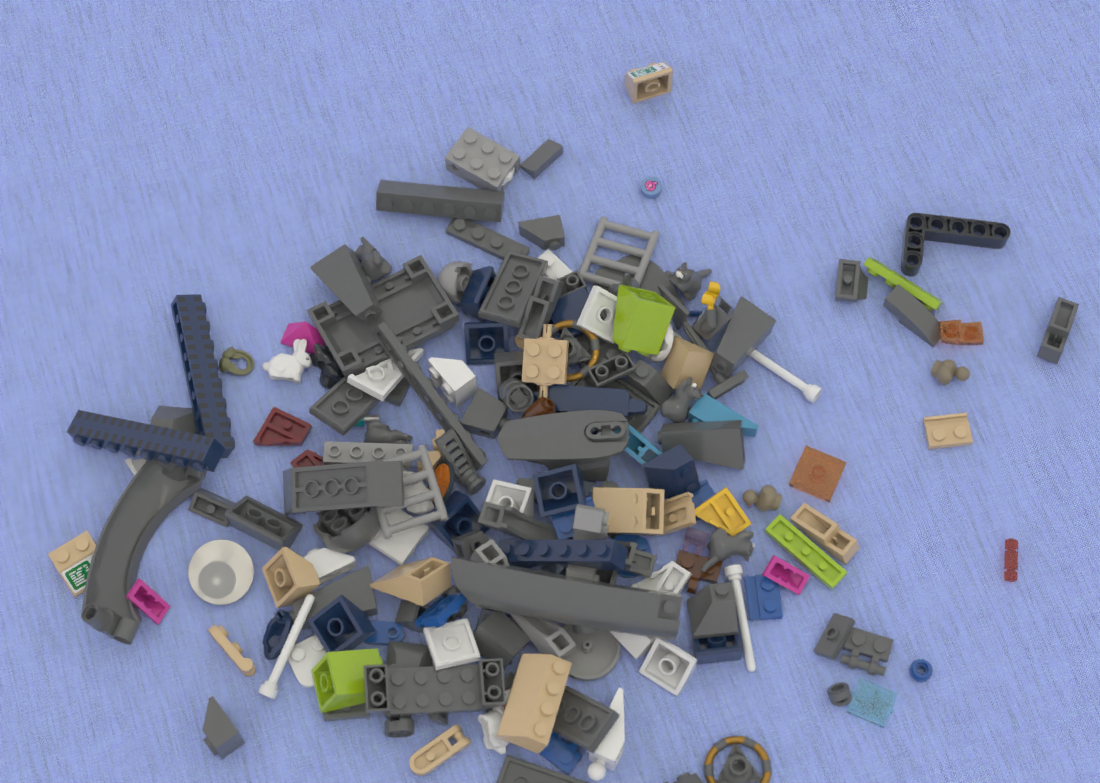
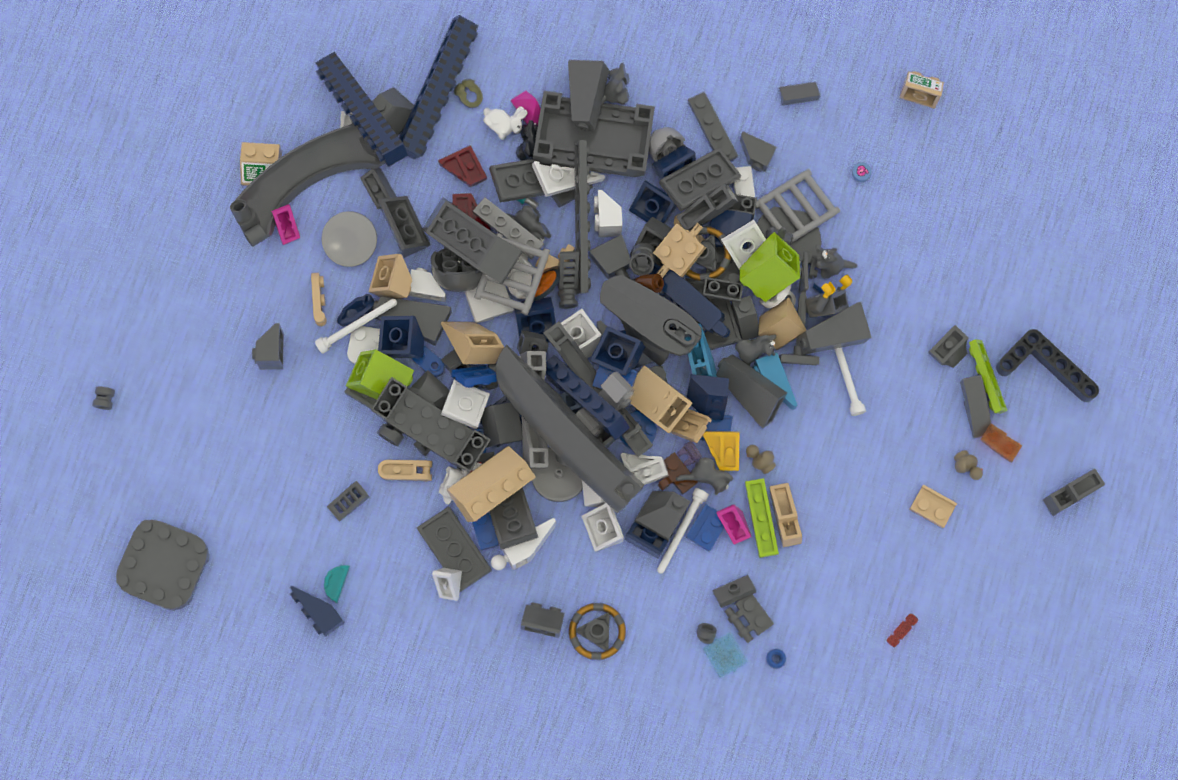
camera: 30 degrees right, 10 degrees up
(440, 201) = (699, 75): dark grey brick -> none
(482, 161) = (752, 66): light grey piece -> none
(817, 473) = (814, 469): clear orange plate -> none

